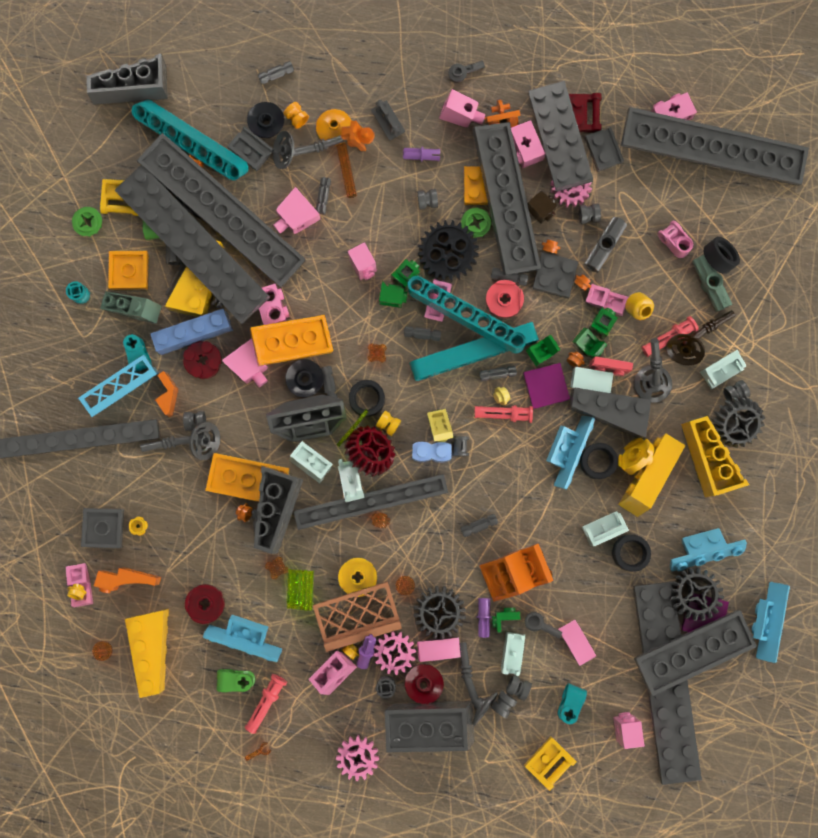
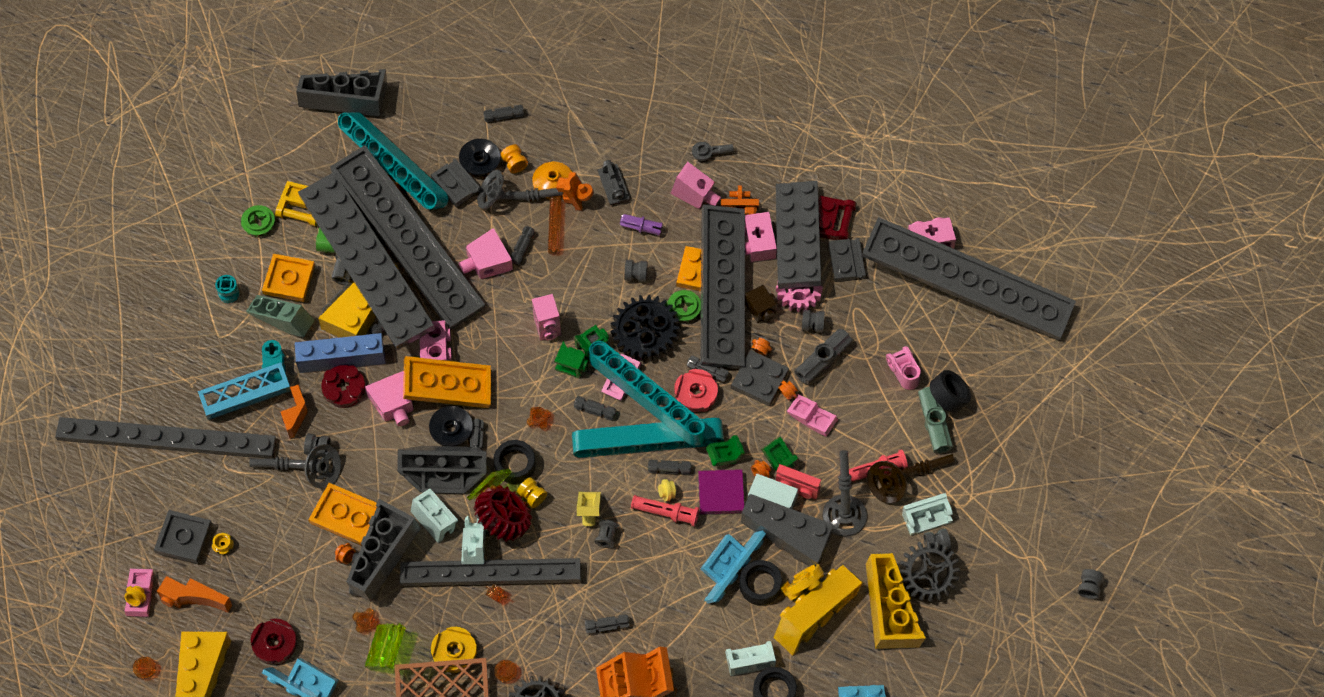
camera: 15 degrees right, 20 degrees down
(437, 452) = (566, 531): light blue brick -> none
(603, 322) = (802, 436): green window -> none
(639, 306) = (845, 426): yellow head -> none

